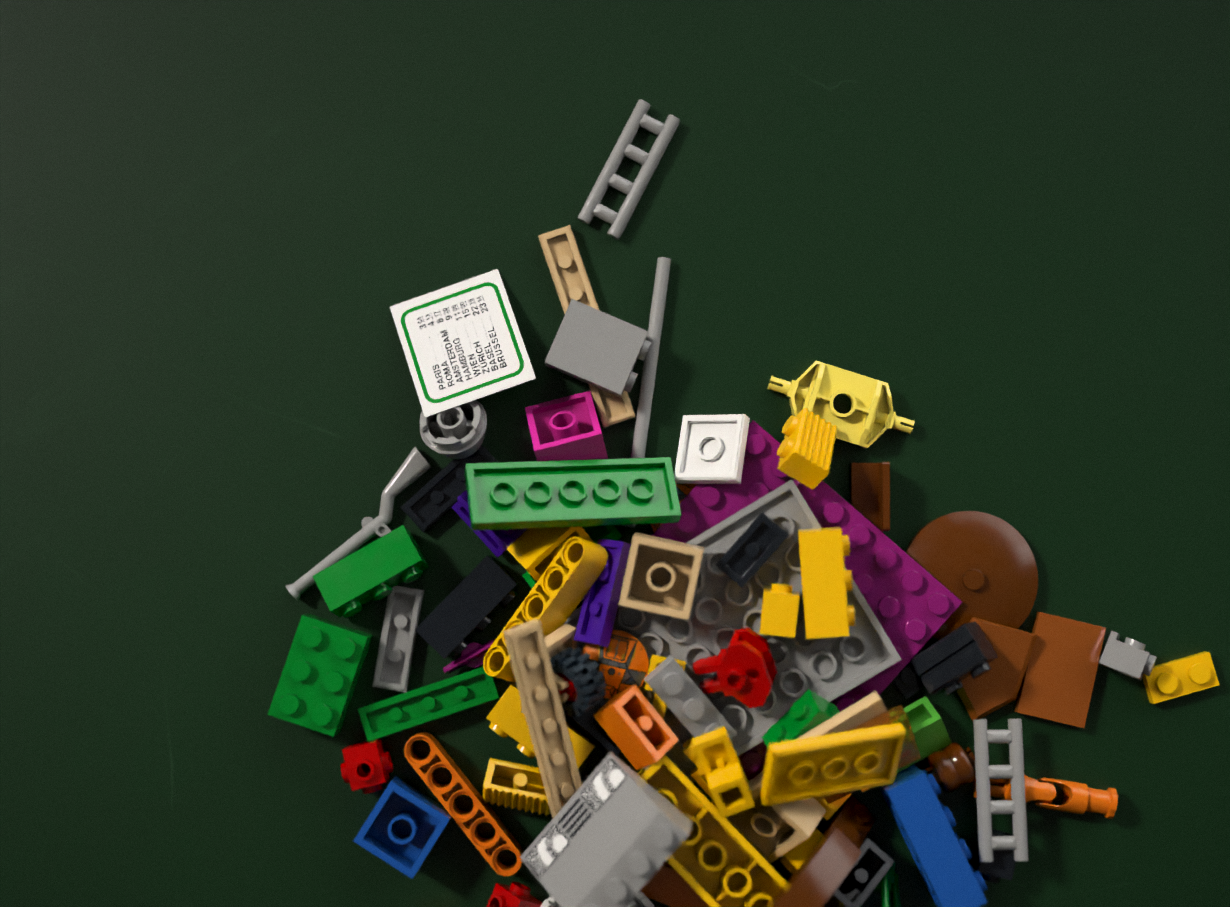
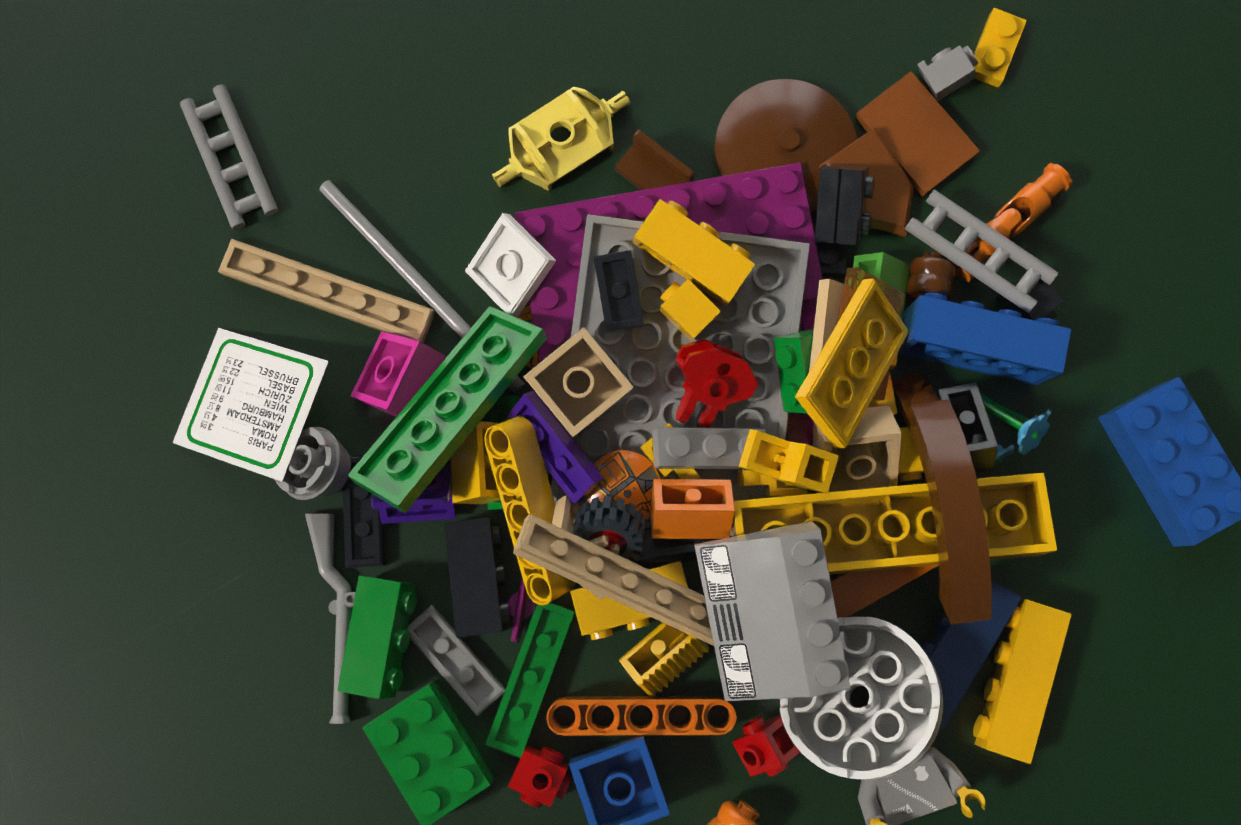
camera: 50 degrees left, 5 degrees down
(598, 349) = (348, 292): light grey brick -> none
(807, 448) = (572, 185): yellow brick -> none

